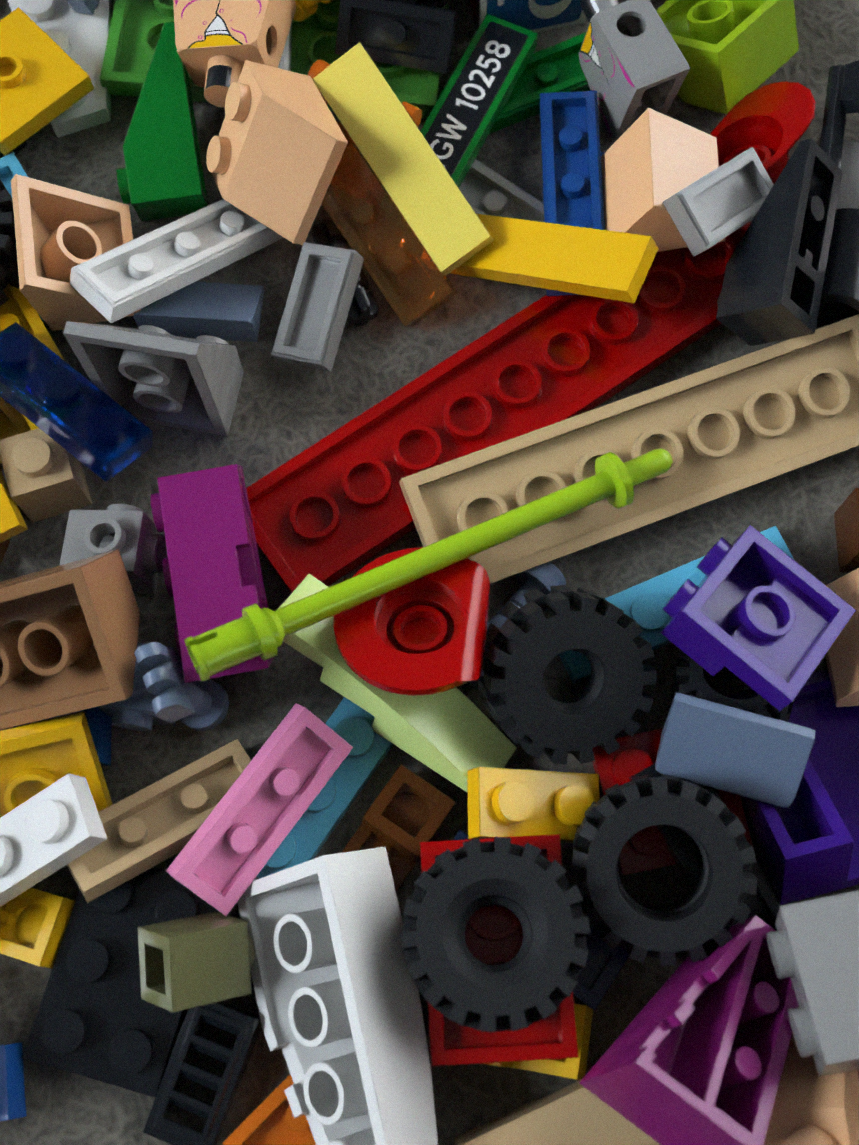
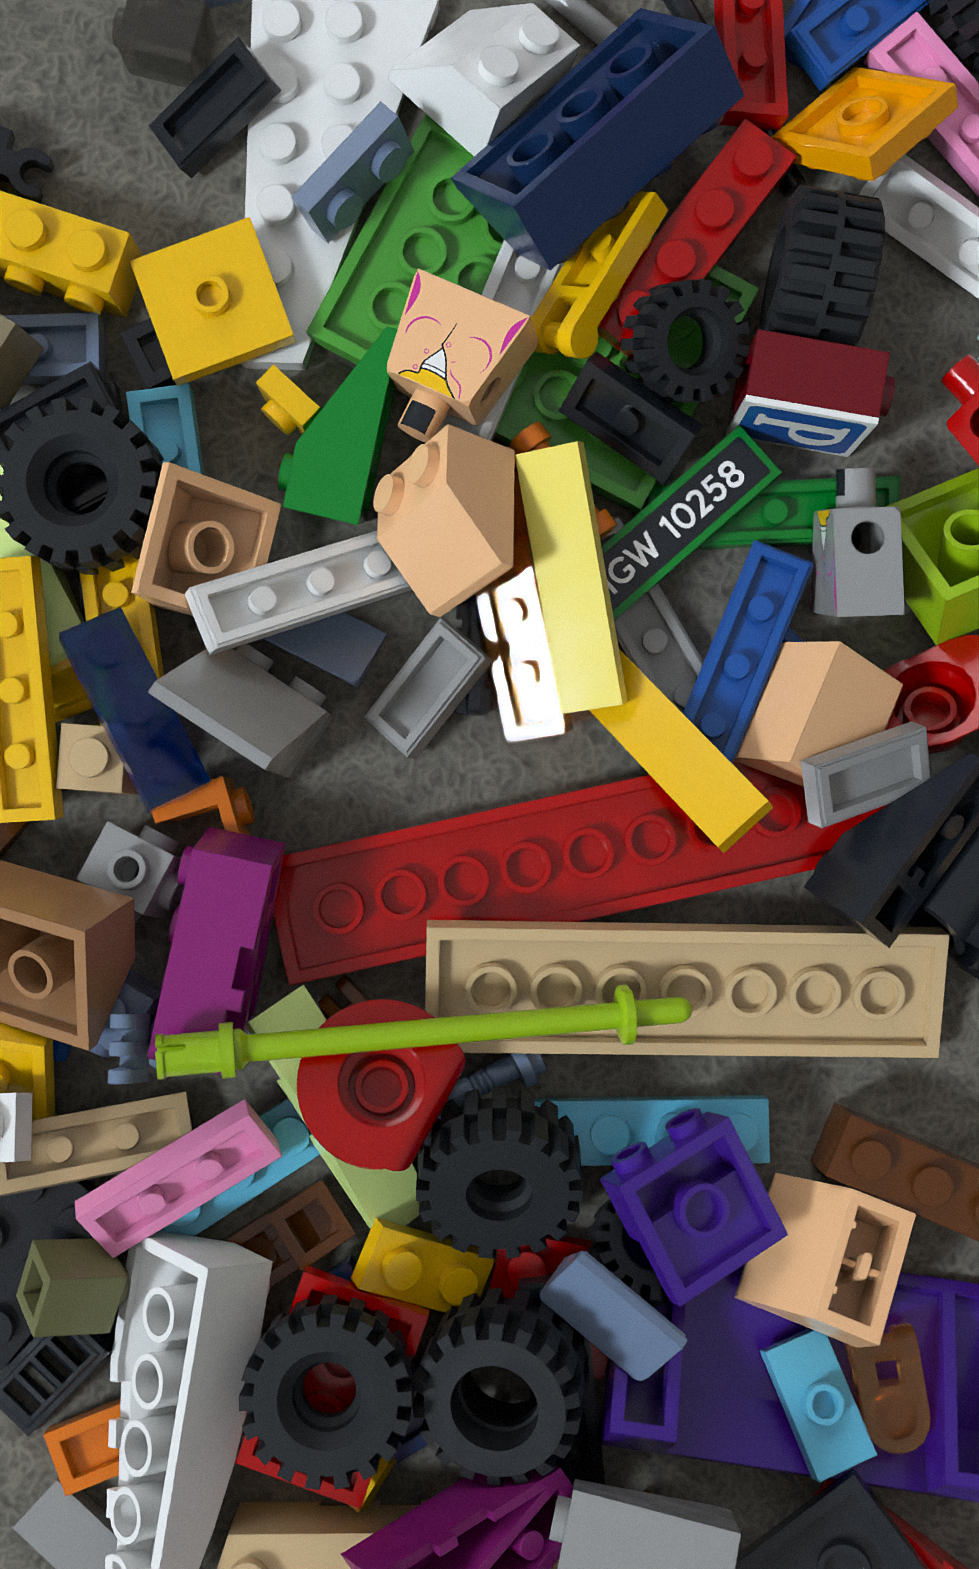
camera: 25 degrees right, 15 degrees up
(101, 134) = (286, 403): none -> yellow plate
(139, 478) = (220, 794): none -> orange bracket

